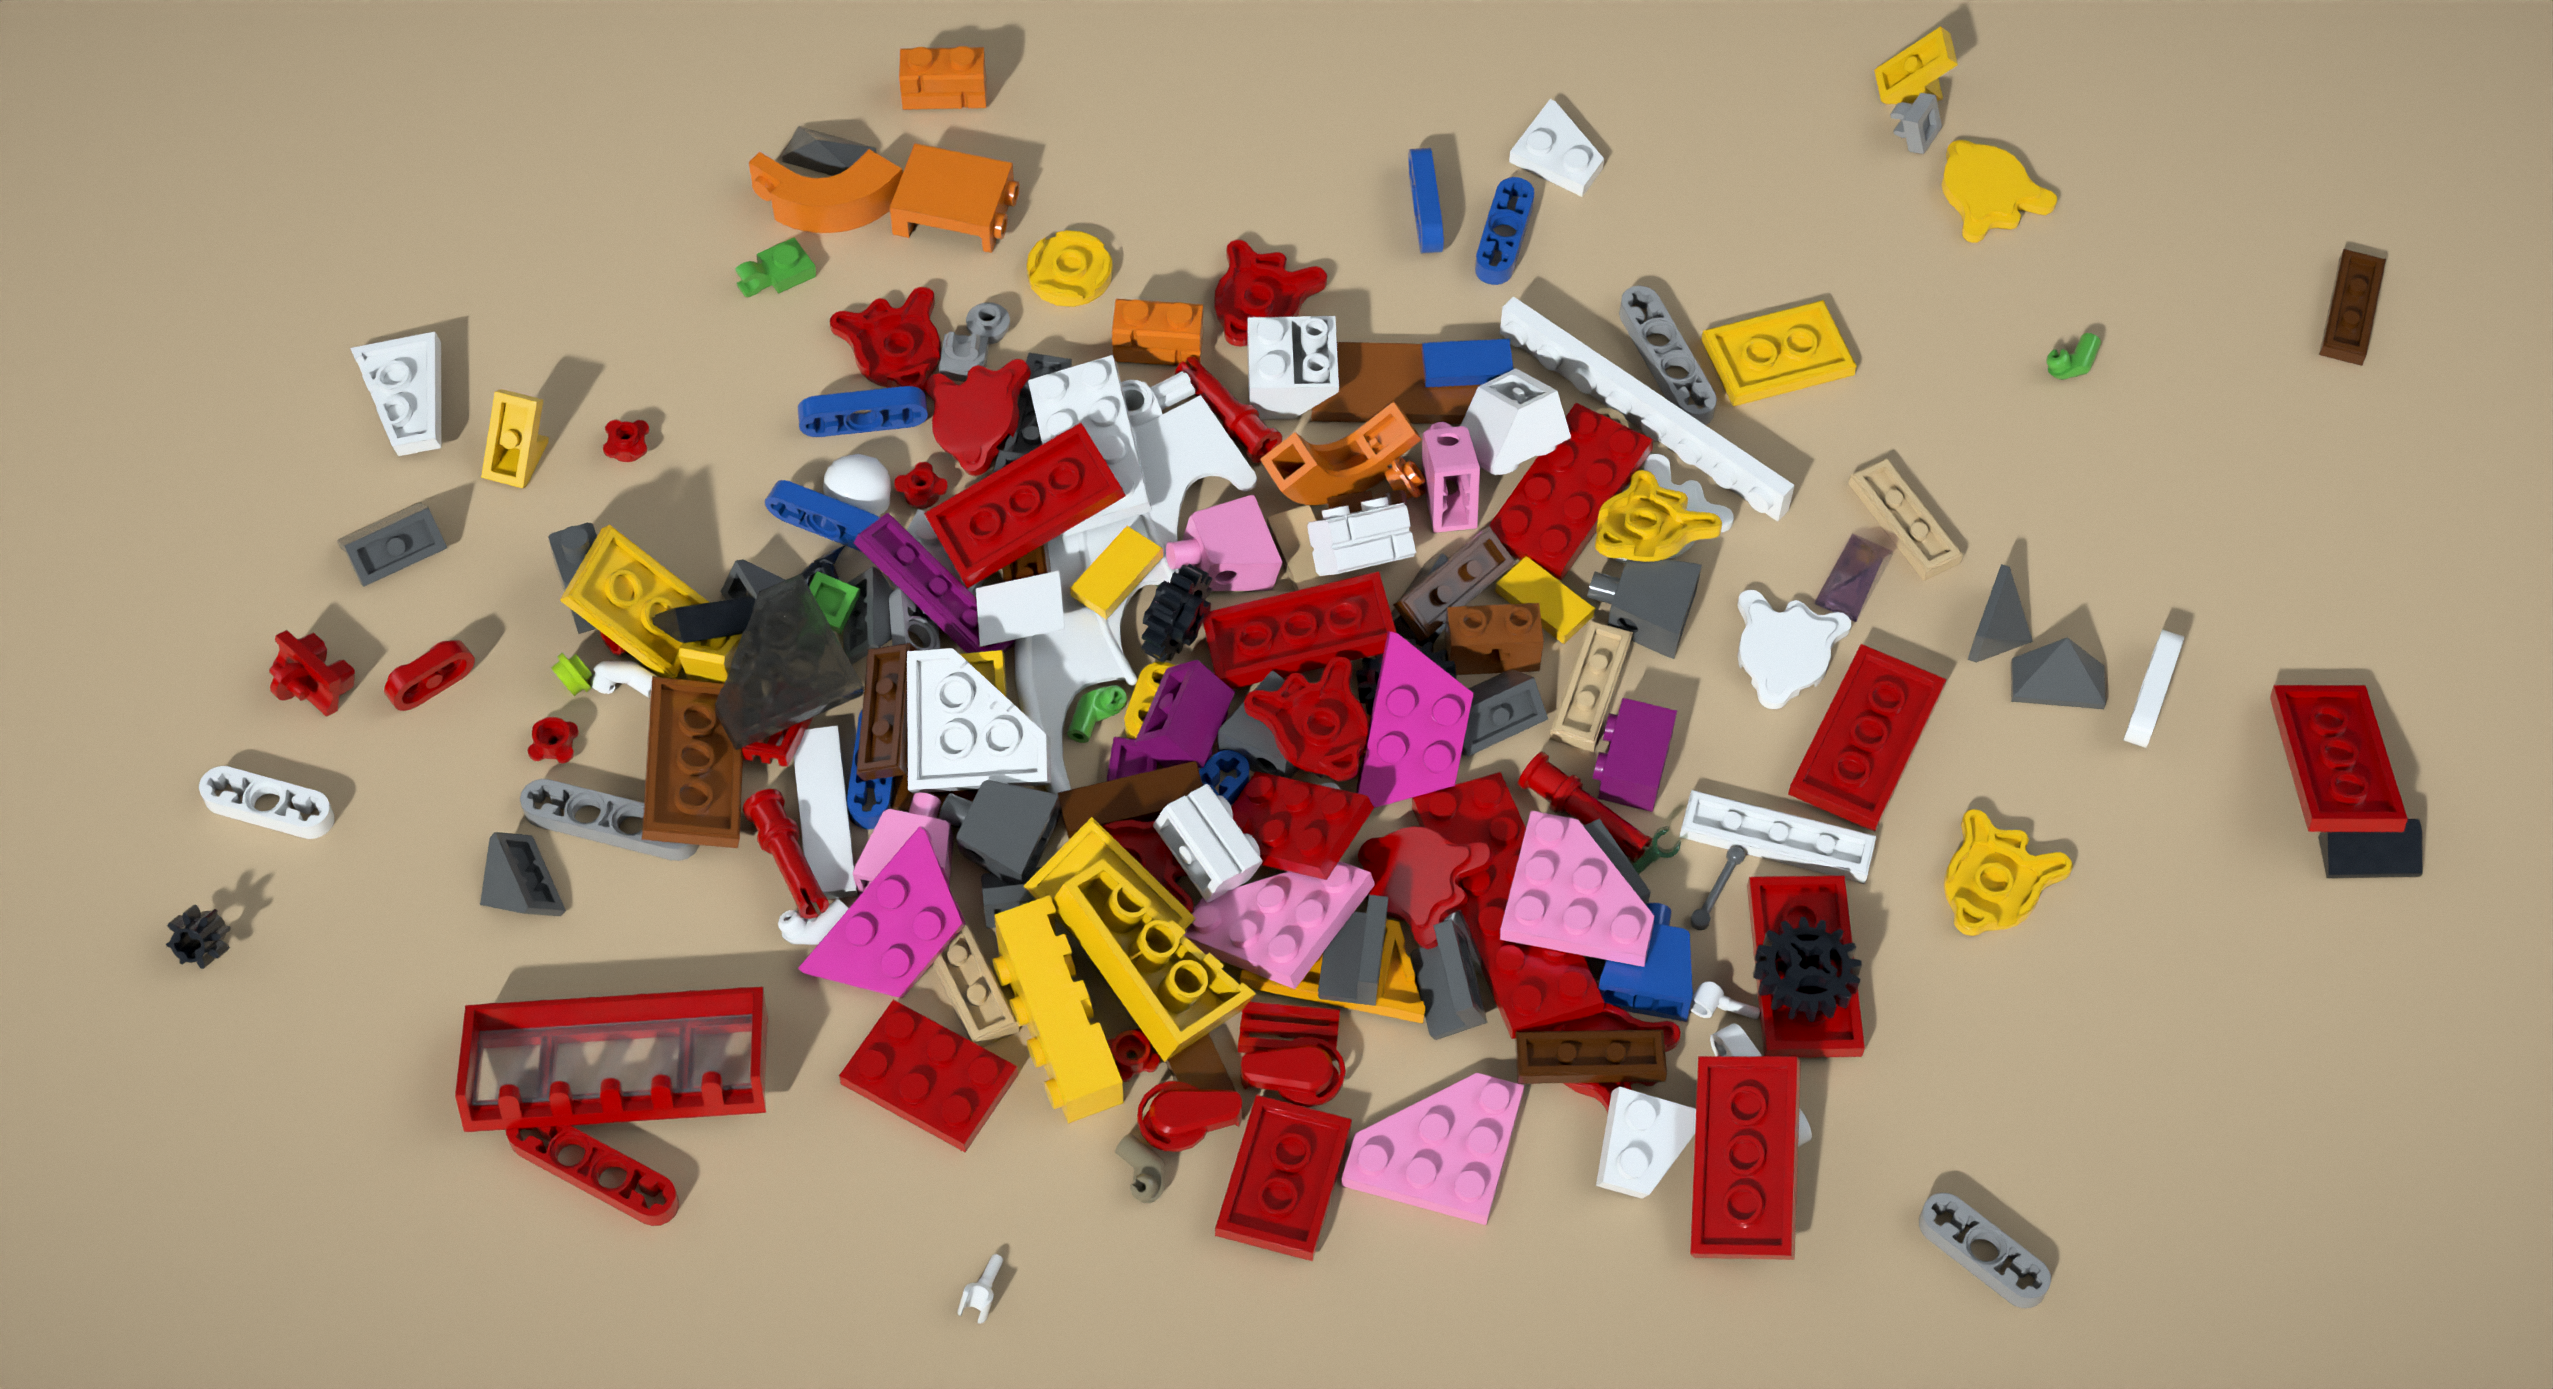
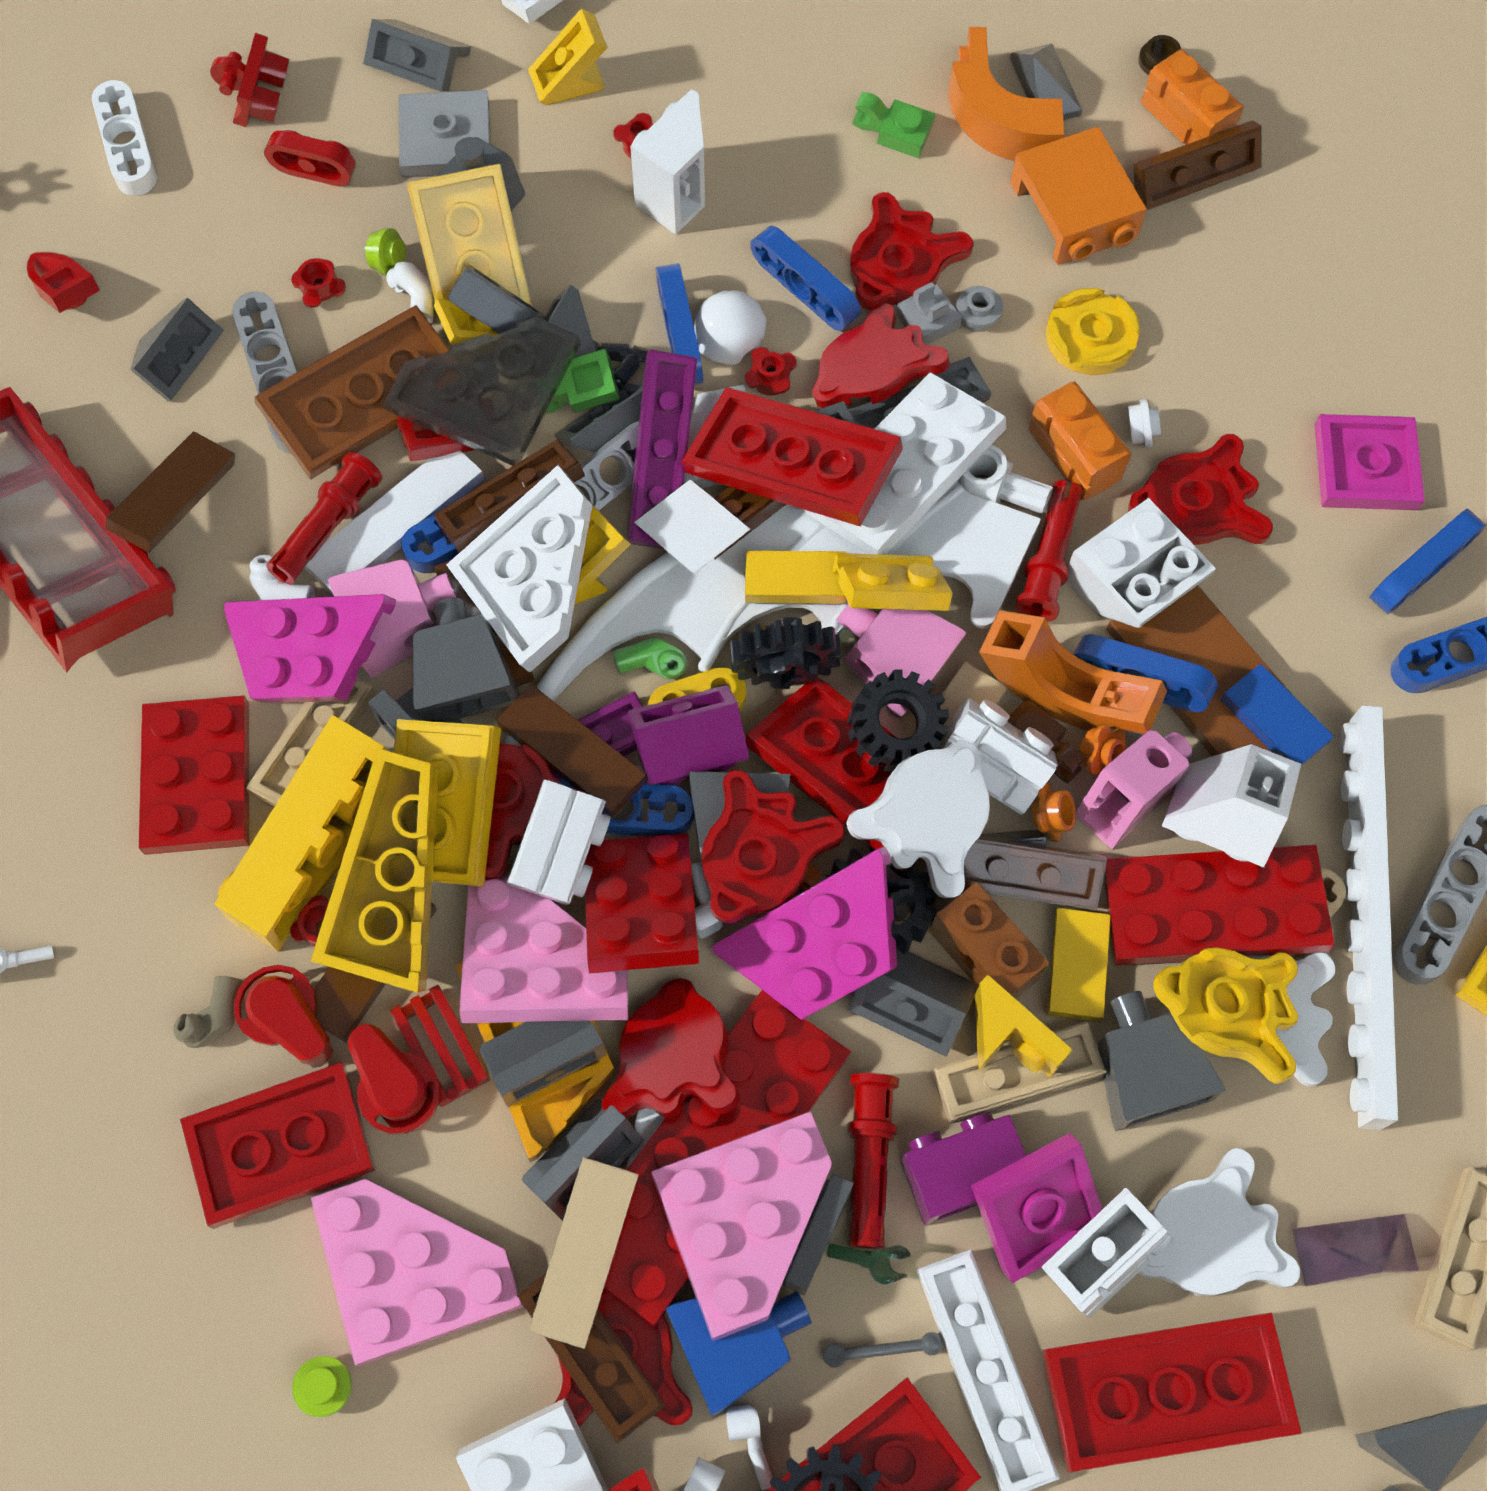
camera: 55 degrees right, 10 degrees up
(373, 924) = (60, 280): none -> red plate
(489, 570) = (434, 124): none -> light grey plate
(669, 944) = (170, 492): none -> reddish brown tile
(691, 425) = (671, 165): none -> white slope
(879, 69) = (1156, 51): none -> dark brown plate
(997, 107) = (1199, 165): none -> reddish brown tile
(1175, 286) = (1144, 423): none -> white plate
(1182, 508) = (892, 582): none -> yellow plate
(1289, 593) = (912, 695): none -> black tyre
(1320, 181) = (1369, 462): none -> dark pink tile
(1381, 595) = (930, 811): none -> white tile
(1406, 389) = (1186, 683): none -> blue beam
(1427, 538) = (1054, 812): none -> orange plate
(1486, 1249) = (322, 1386): none -> lime plate
(1525, 1003) = (583, 1252): none -> tan tile
(1559, 657) = (1005, 1019): none -> yellow slope
(1697, 723) = (1037, 1205): none -> dark pink tile
(1756, 703) = (1107, 1253): none -> white brick

